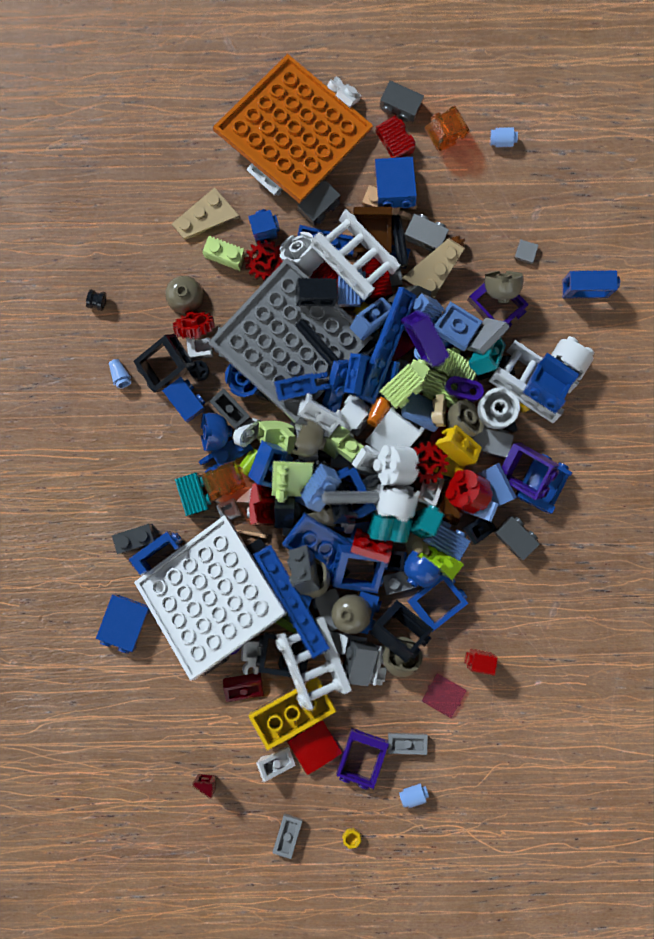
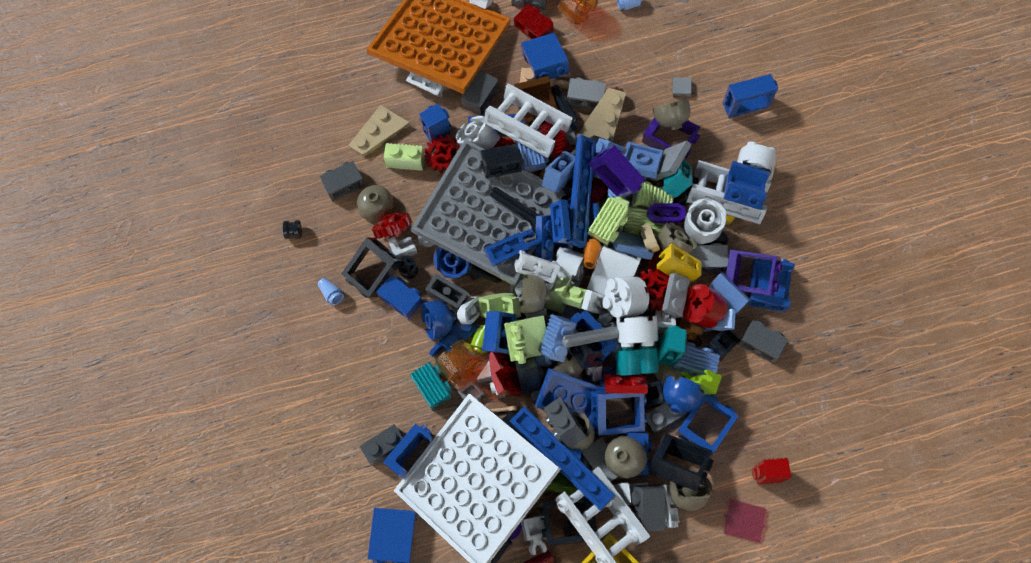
camera: 15 degrees left, 15 degrees down
(156, 261) = (342, 180): none -> dark grey brick
(445, 475) = (676, 295): none -> light grey plate

